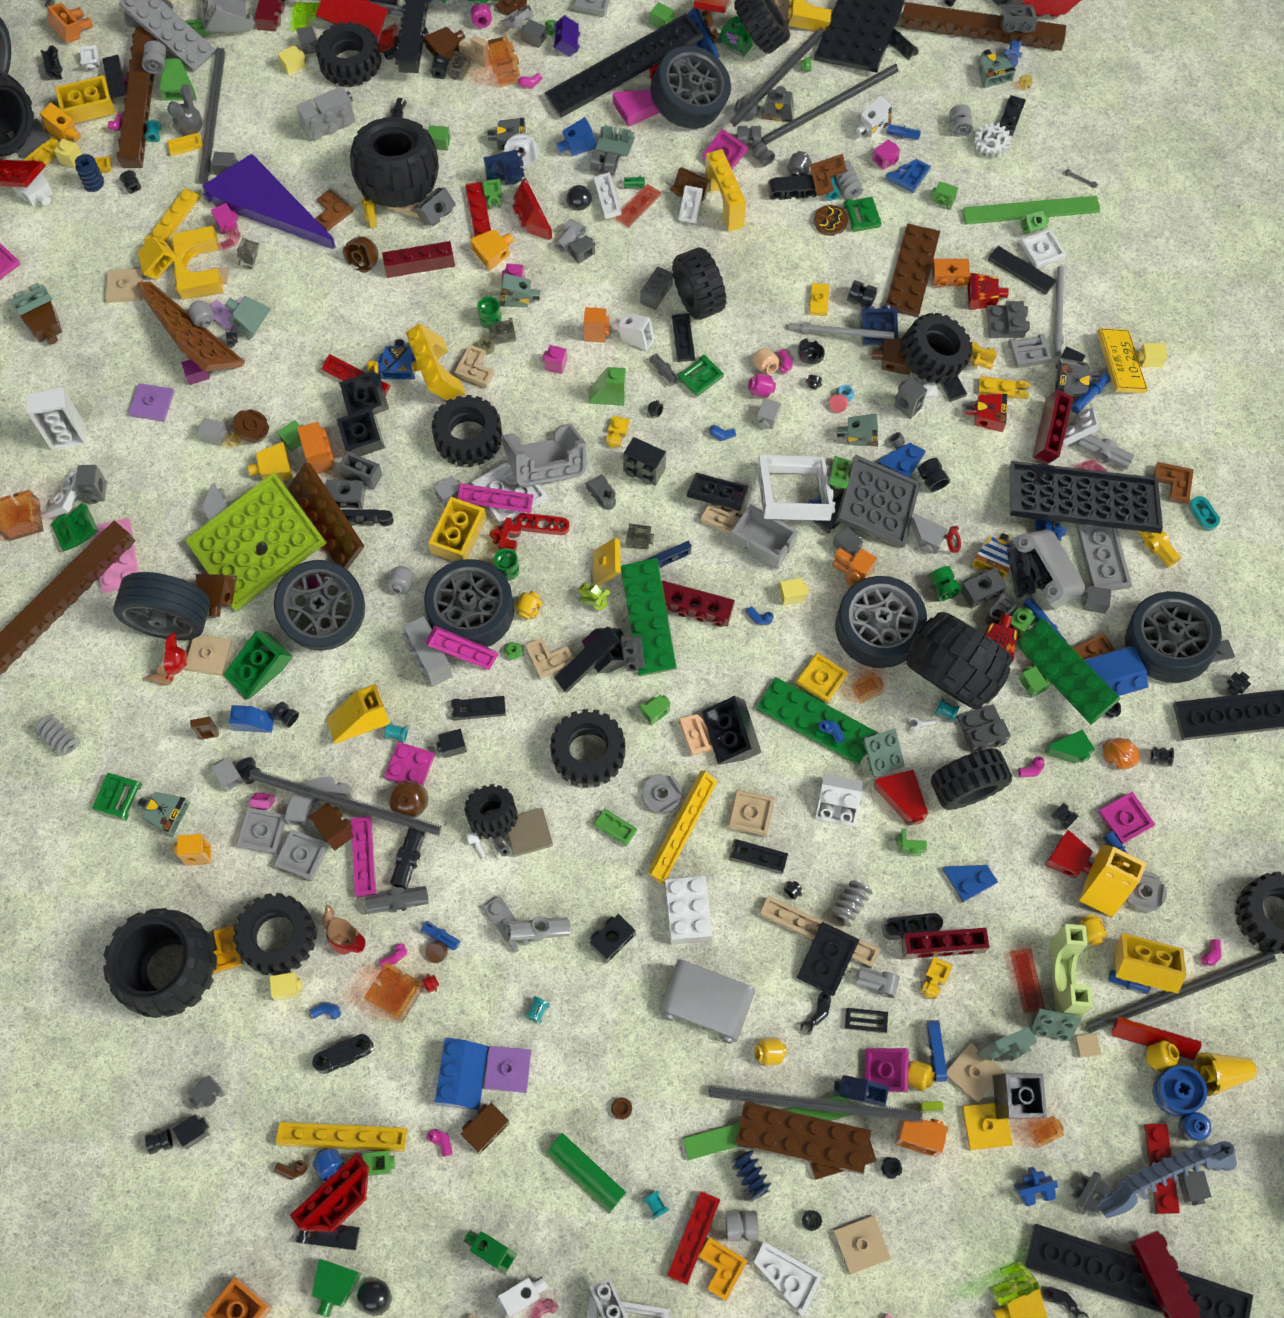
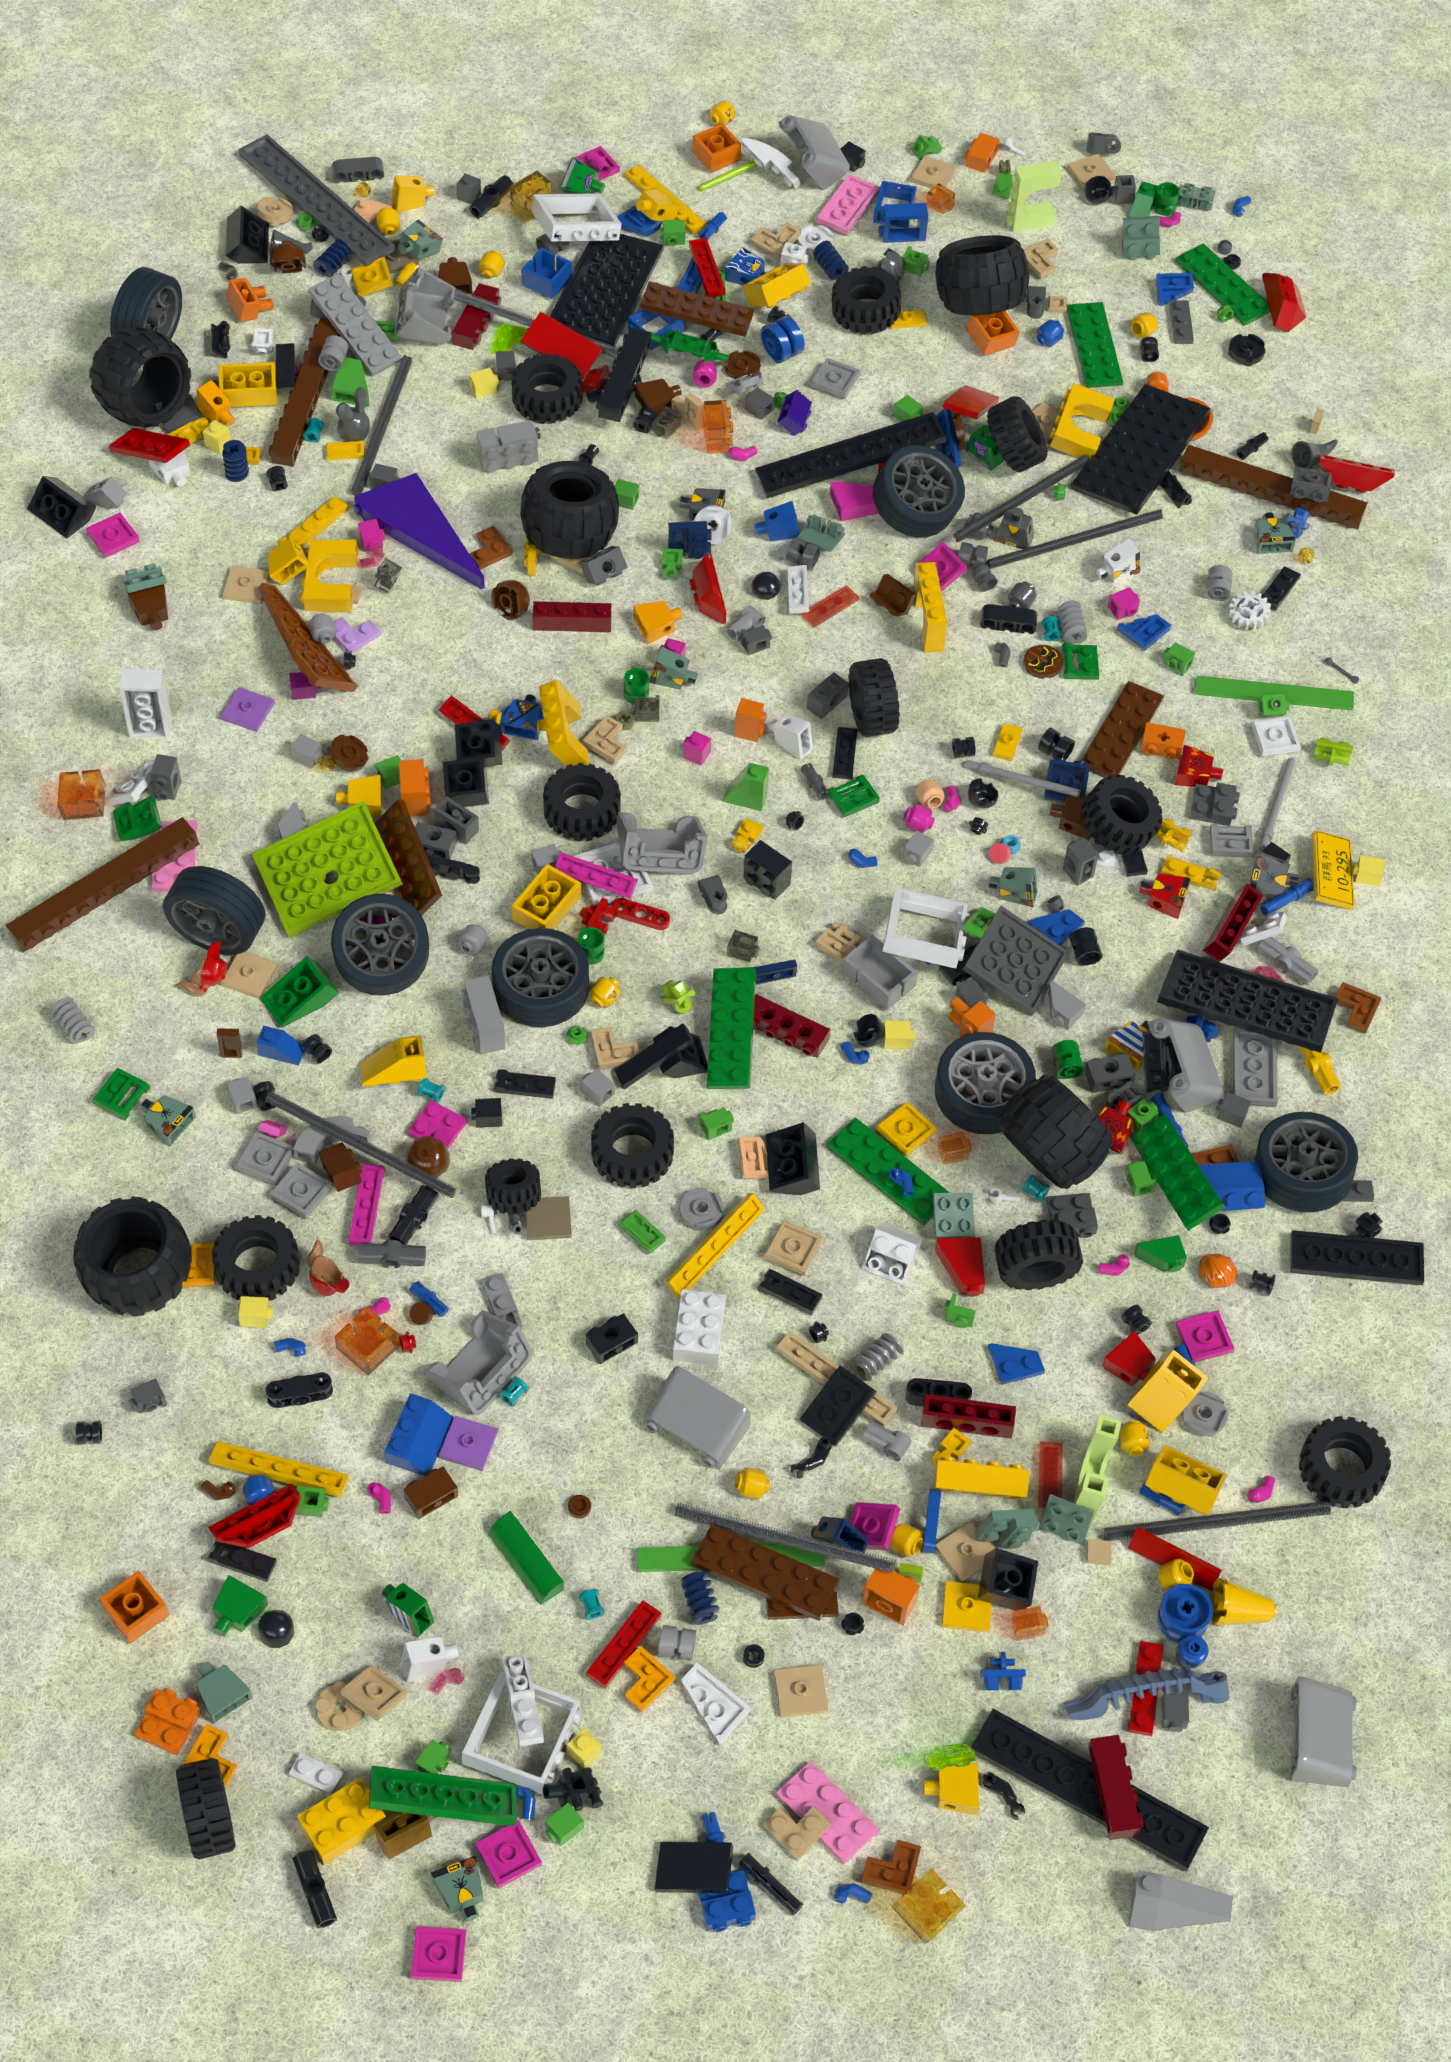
camera: 10 degrees right, 10 degrees down
(115, 125) = (275, 416): dark pink arm -> none
(192, 1131) = (125, 1430): black brick -> none
(193, 849) = (190, 1158): light orange brick -> none
(219, 590) = (278, 909): reddish brown torso -> none
(247, 315) = (371, 639): sand green torso -> none
(461, 647) = (521, 1016): dark pink plate -> none
(478, 208) = (651, 575): red plate -> none
(503, 990) = (484, 1365): none -> light grey windscreen
(526, 928) = (534, 1311): light grey piece -> none
(543, 697) = (598, 1087): none -> light grey brick
(606, 562) = (700, 963): yellow plate -> none
(633, 182) = (832, 580): green pin -> none
(633, 653) = (704, 1057): dark grey hips -> none
(690, 204) = (888, 615): white plate -> none
(717, 491) = (841, 917): black tile -> none
(768, 593) = (869, 1031): none -> black hair
(782, 312) = (963, 747): none -> black wheel
(797, 218) = (1004, 652): none -> dark grey arm
(824, 170) = (1045, 607): dark orange plate -> none
(884, 1022) = (860, 1484): black tile -> none
(901, 131) = (1150, 583): blue axle -> none
(951, 533) = (1084, 1012): red piece -> none
(971, 1002) = (981, 1479): none -> yellow brick
(1022, 270) = (1246, 754): black tile -> none
(1094, 253) = (1333, 751): none -> lime hips
(1095, 1185) = (1057, 1690): dark grey hips -> none
(1205, 513) = (1382, 1047): teal plate -> none

